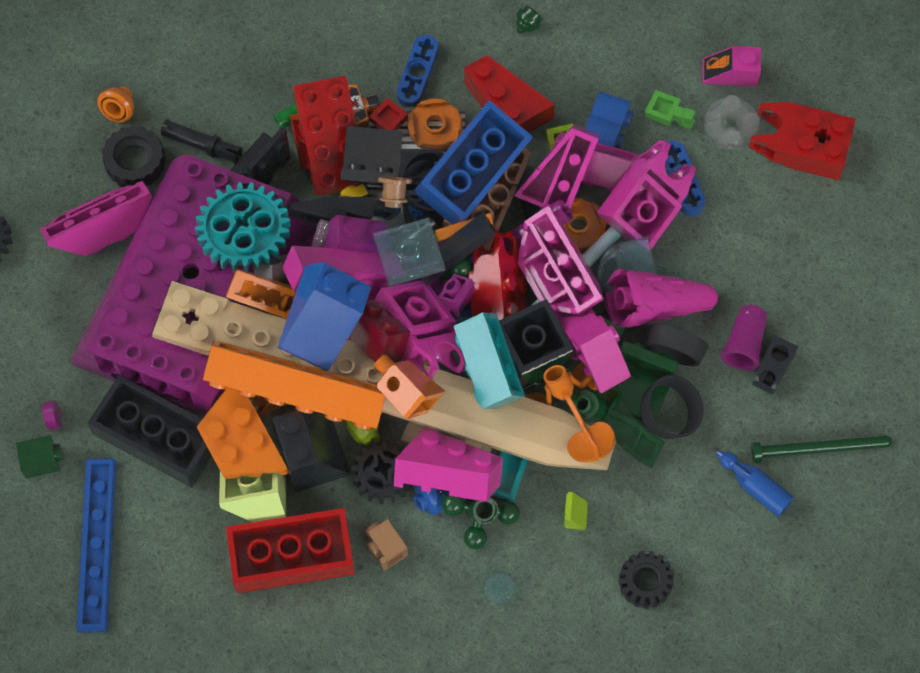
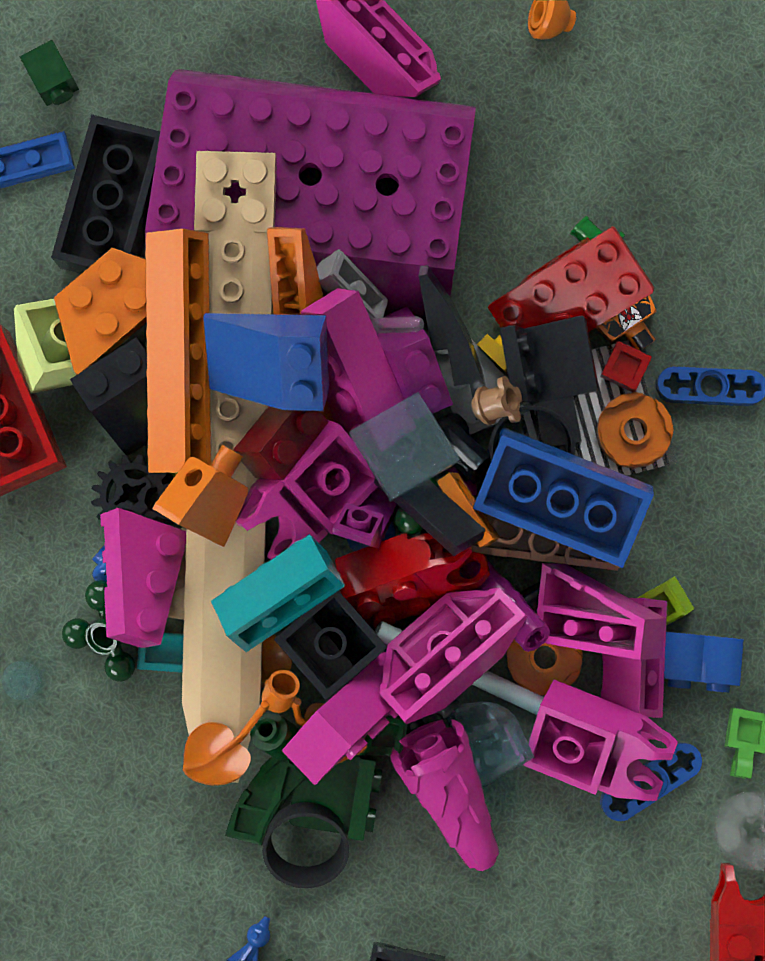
camera: 80 degrees right, 15 degrees up
(52, 415) = (107, 72): magenta tile -> none
(133, 137) = (487, 32): black tyre -> none
(210, 144) = (525, 152): black pin -> none
(243, 227) = (394, 189): teal gear -> none
(264, 157) = (518, 221): black bracket -> none
(386, 544) = (40, 524): medium nougat brick -> none
(518, 100) = (697, 515): red wedge -> none
(575, 512) = (141, 752): lime slope -> none
(646, 562) = (50, 870): black tyre -> none
(679, 344) = (391, 831): black tyre -> none
(746, 339) = (435, 922): magenta plant -> none

